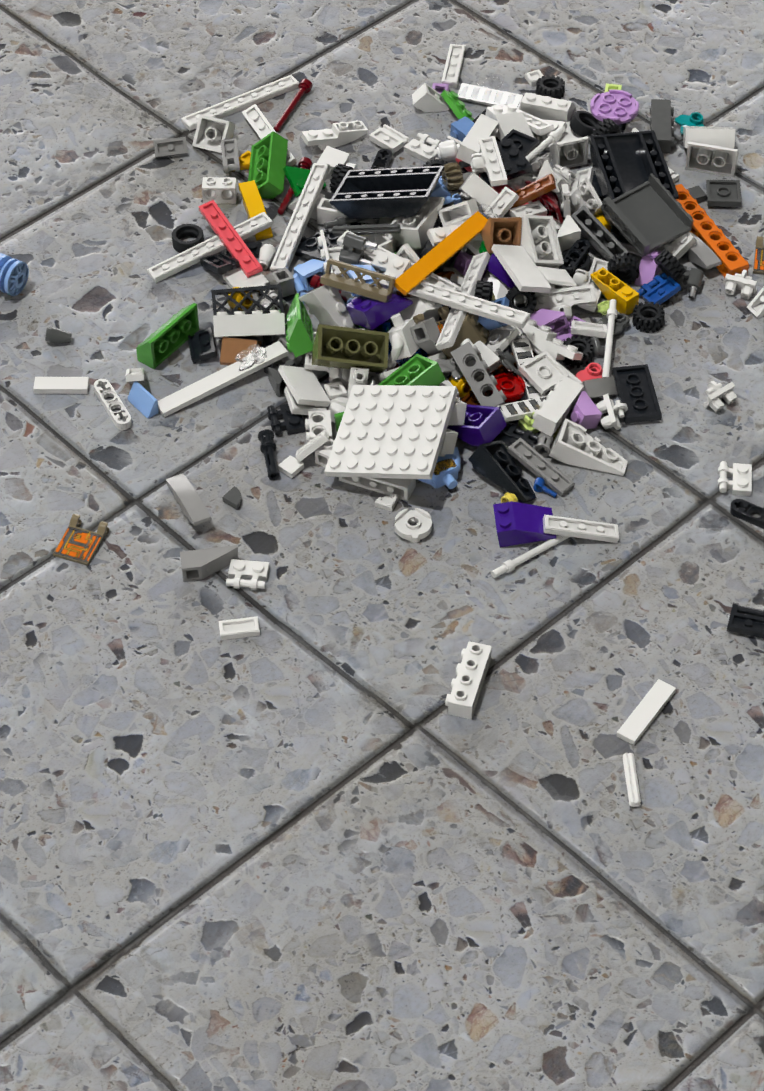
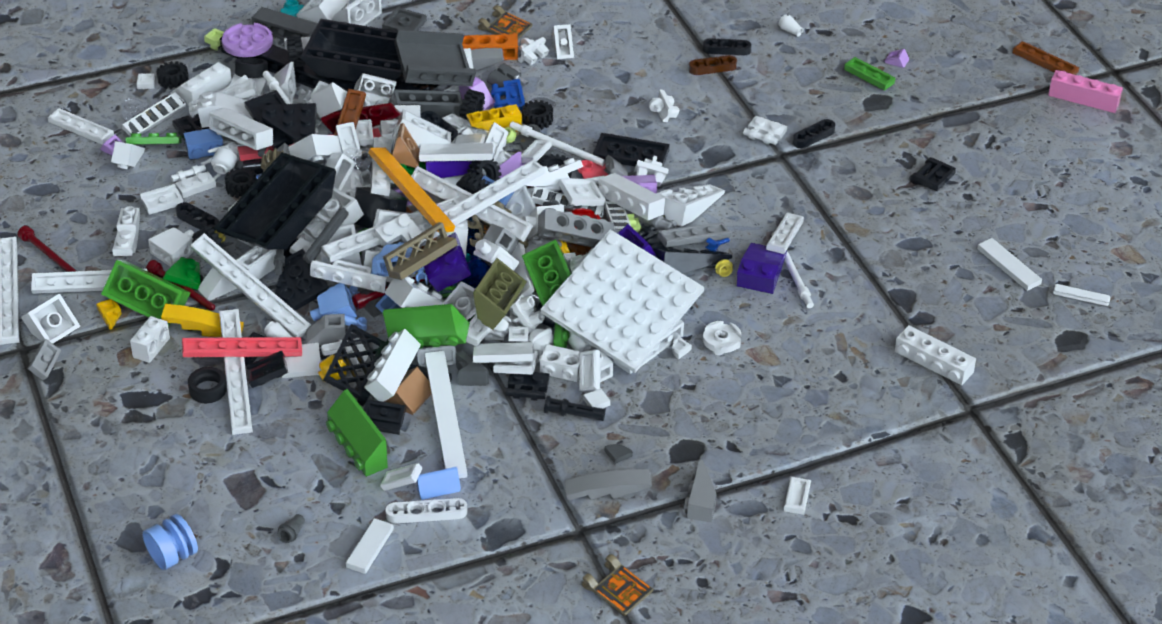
camera: 70 degrees left, 5 degrees down
(230, 155) = (102, 314): light grey plate -> none
(247, 574) = (724, 467): white plate -> none
(249, 357) = (436, 380): clear plate -> none
(354, 248) = (358, 248): dark grey piece -> none
(489, 161) = (296, 123): white plate -> none
(670, 265) = (497, 72): black tyre -> none

